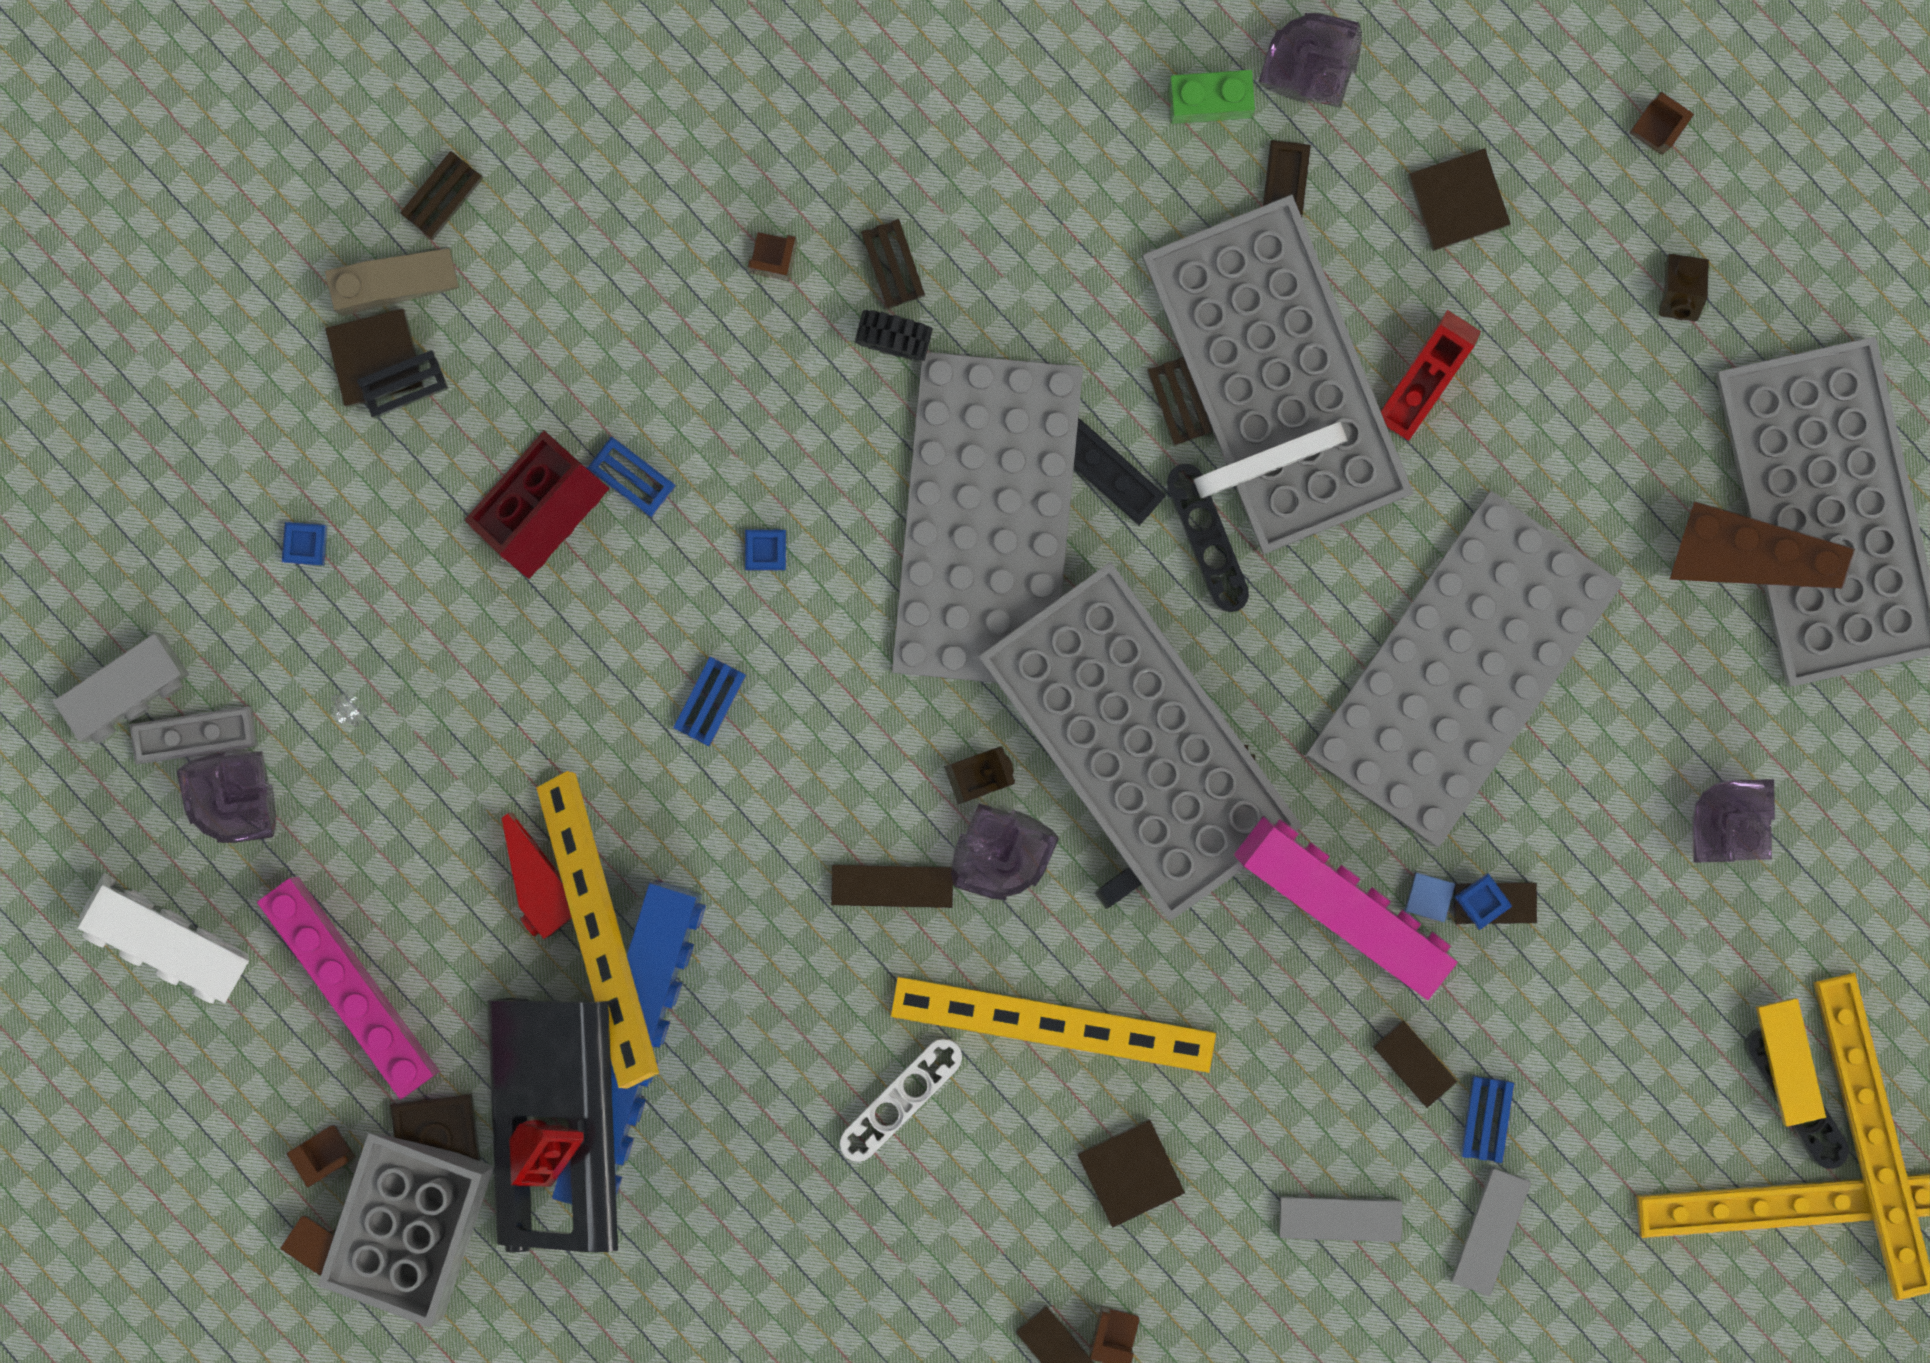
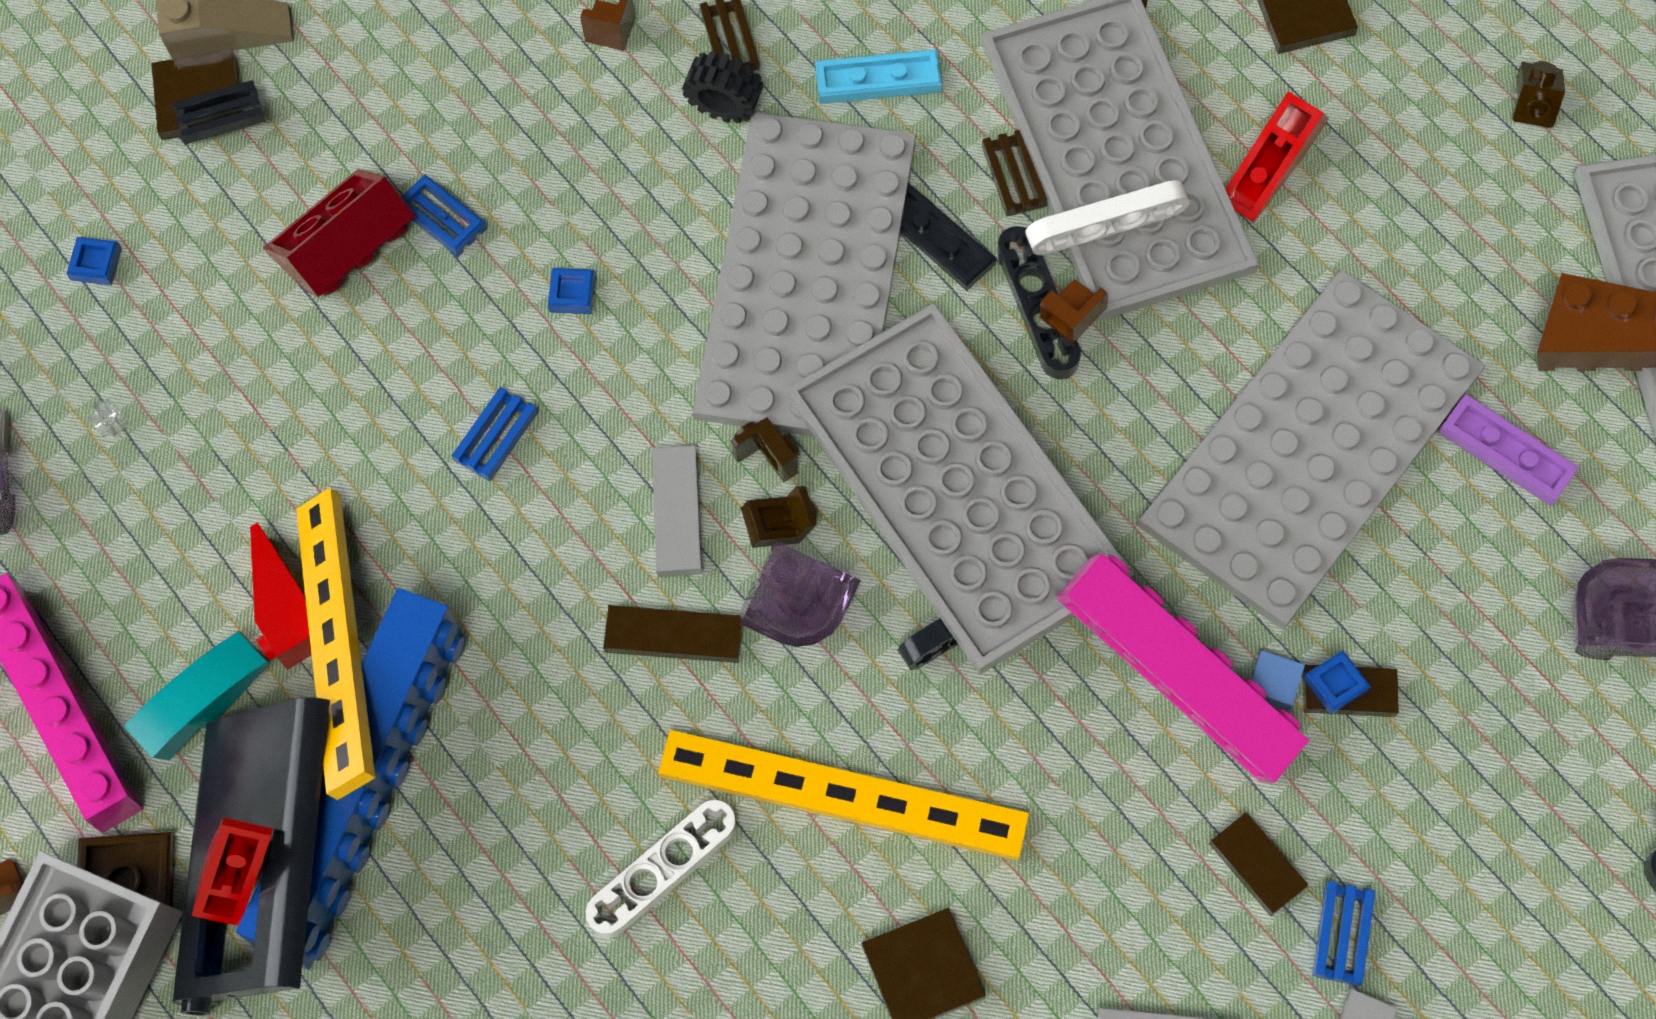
camera: 10 degrees right, 20 degrees down
(476, 974) = (196, 696): none -> teal slope
(884, 767) = (676, 511): none -> light grey tile
(974, 705) = (777, 449): none -> dark brown bracket
(1042, 300) = (878, 76): none -> medium azure tile
(1241, 554) = (1073, 309): none -> reddish brown panel
(1641, 666) = (1508, 450): none -> medium lavender plate

